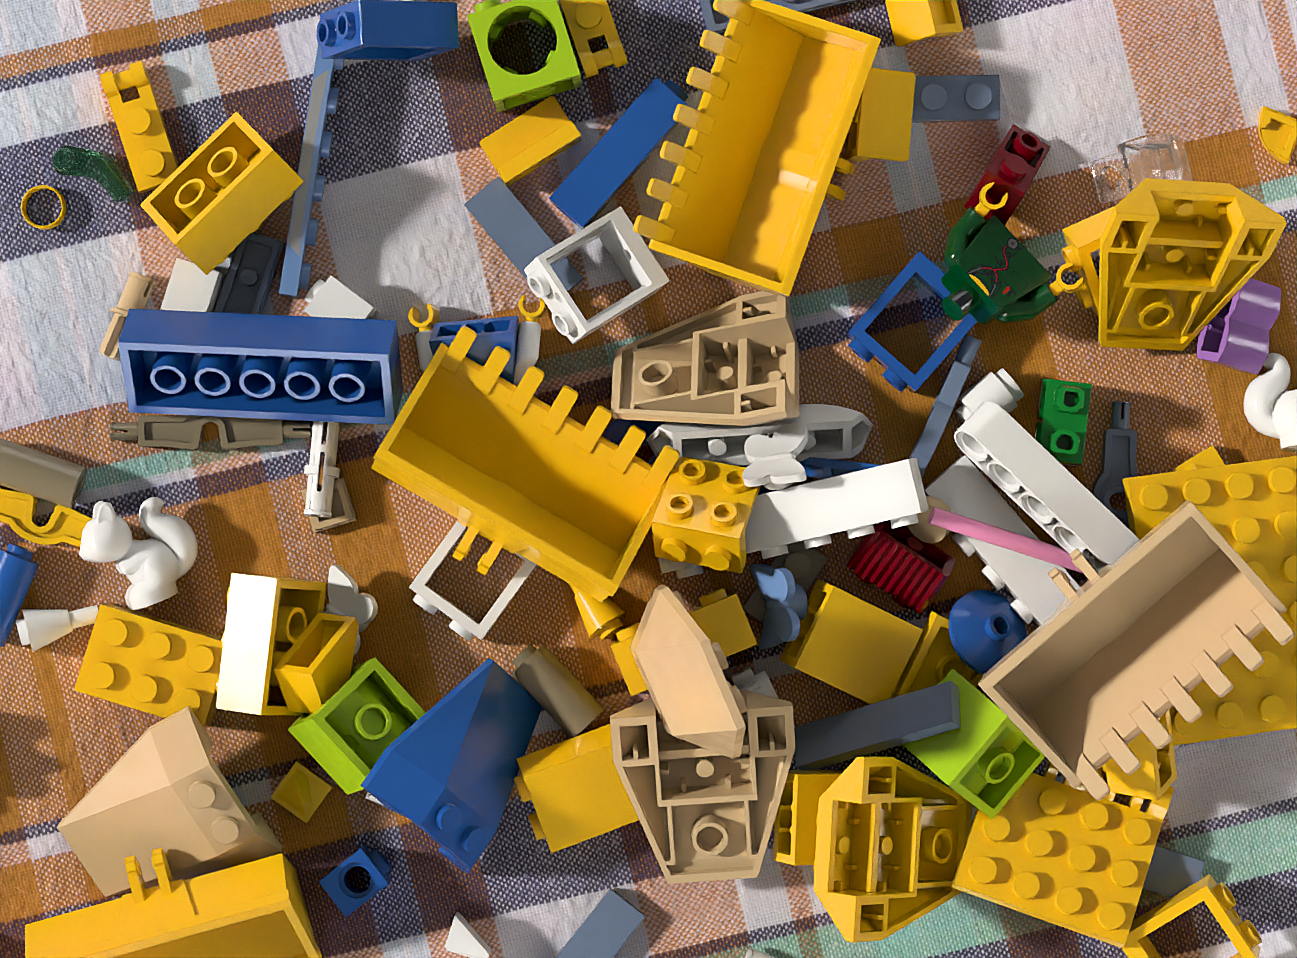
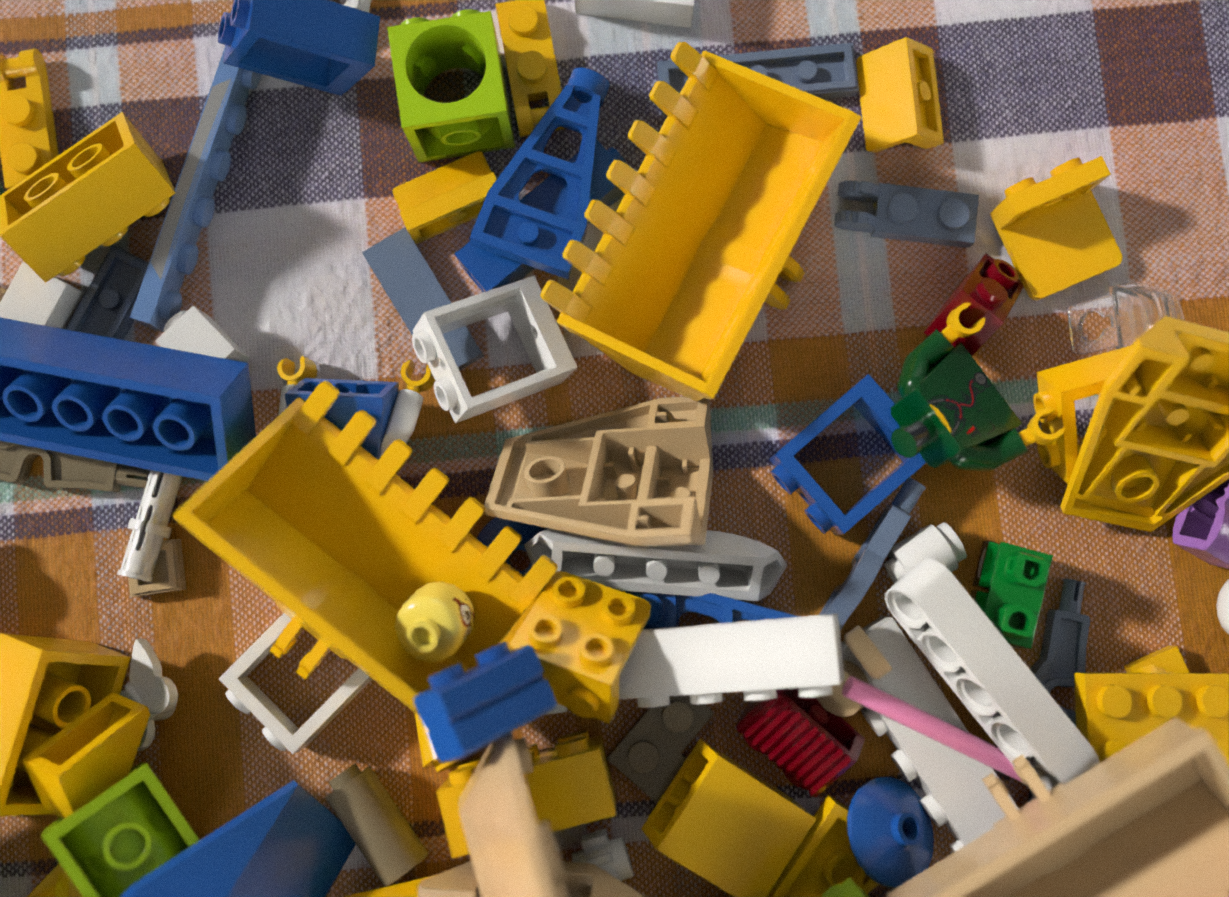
camera: 10 degrees right, 5 degrees down
(586, 512) = (435, 621): none -> light yellow head
(614, 173) = (530, 233): none -> blue plate
(643, 564) = (484, 702): none -> blue brick
(775, 458) = (670, 590): white animal -> none
(784, 604) = (656, 763): medium blue animal -> none
(883, 118) = (843, 221): yellow panel -> none
(945, 487) = (867, 653): none -> tan tile
(1071, 98) = (1057, 228): none -> yellow bracket

